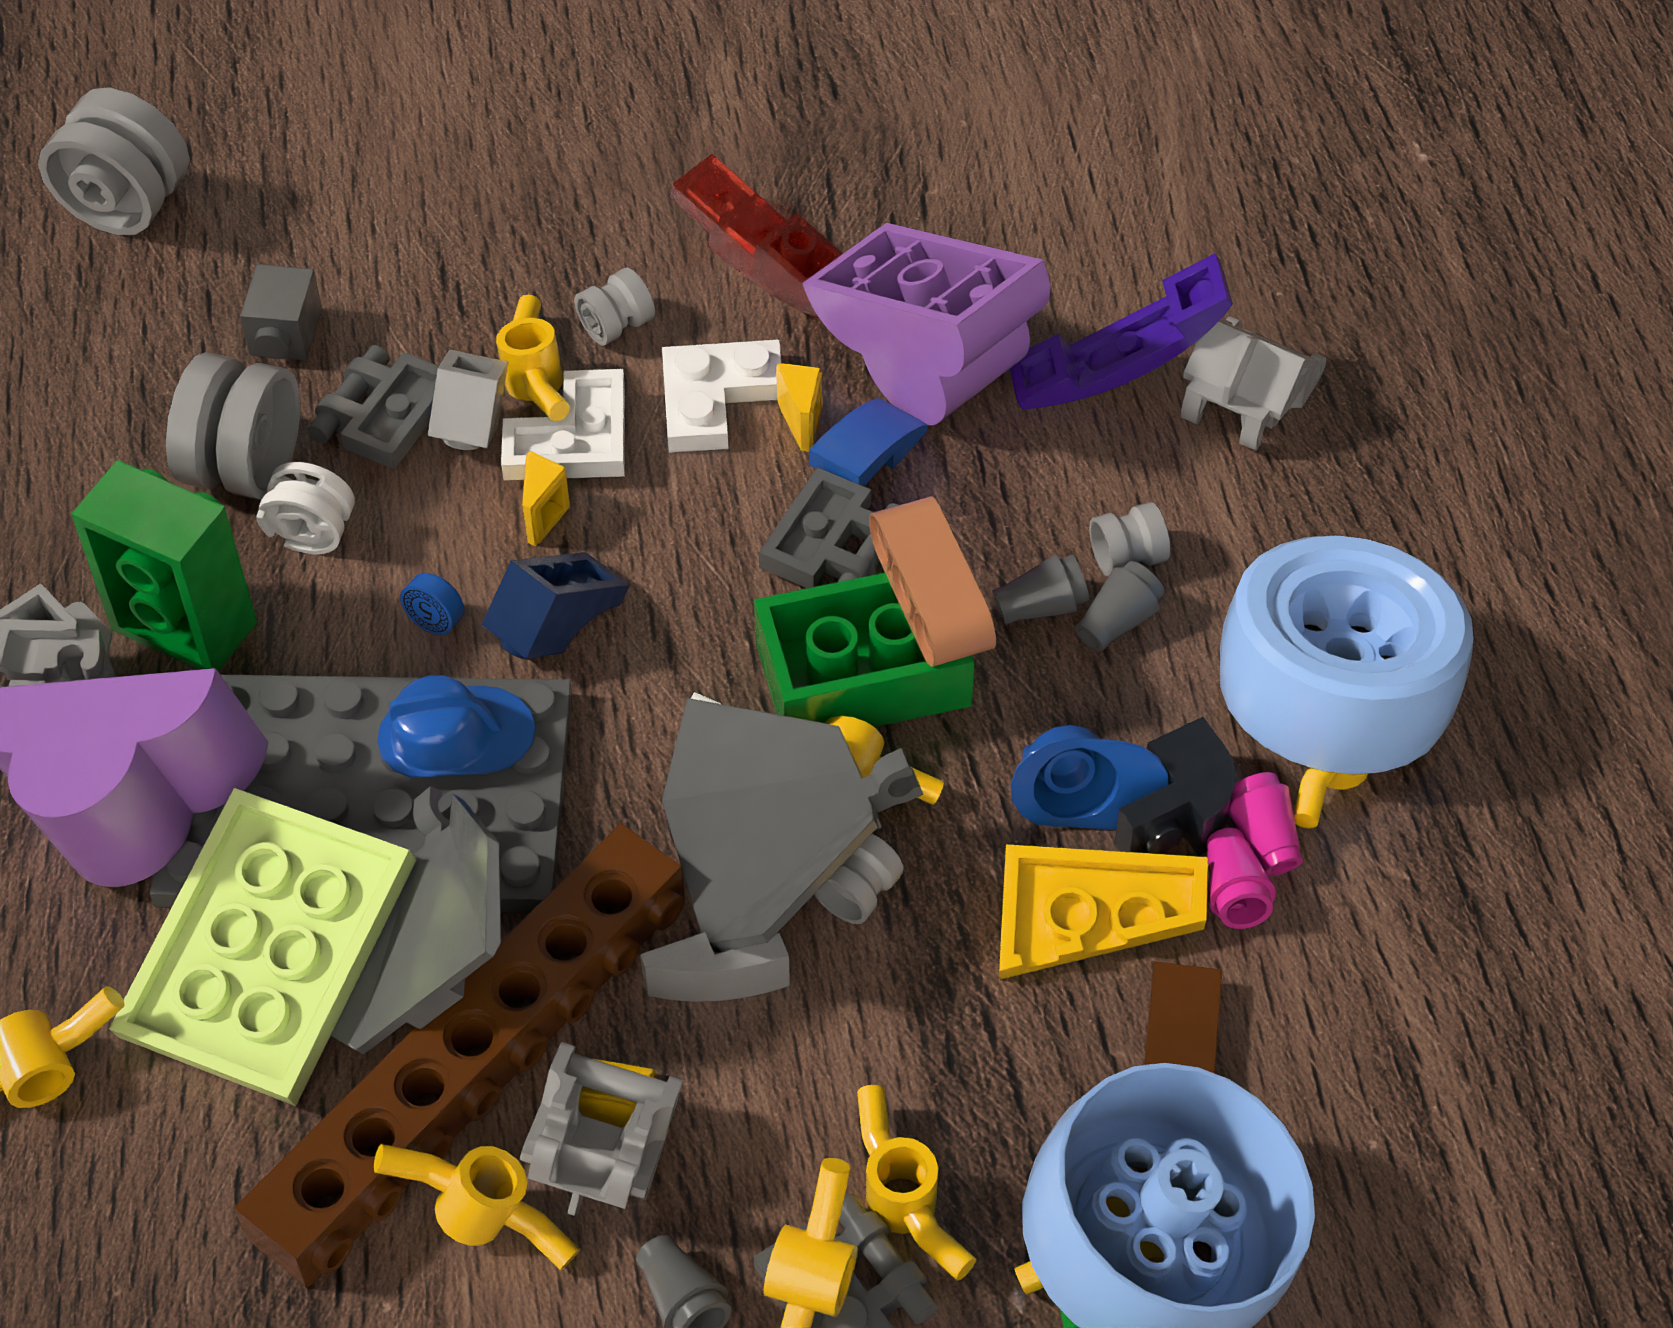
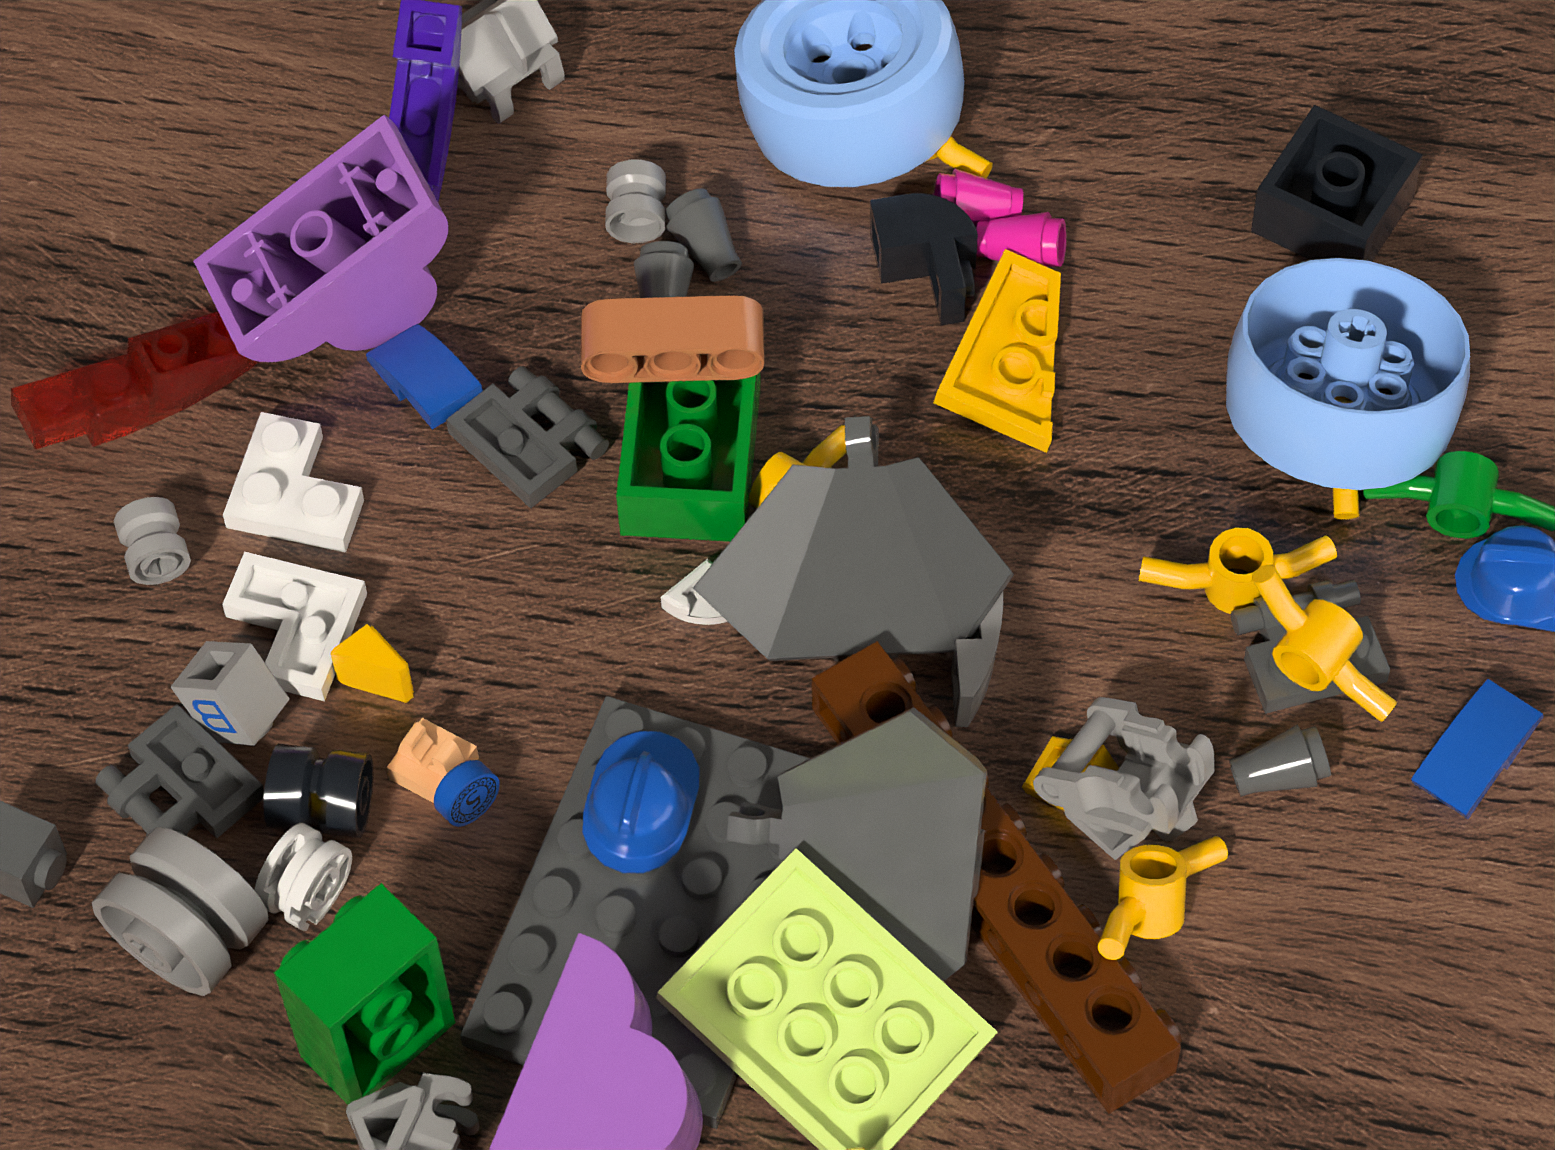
camera: 70 degrees left, 5 degrees up
(396, 494) = (319, 790): none -> black wheel
(470, 569) = (427, 757): none -> light nougat tile
(532, 359) = (186, 611): yellow piece -> none
(549, 601) = (517, 684): dark blue arch -> none
(800, 401) = (356, 414): yellow slope -> none
(1082, 780) = (888, 312): blue piece -> none
(1183, 1015) = (1150, 331): reddish brown tile -> none
(1427, 1154) = (1335, 190): none -> black brick

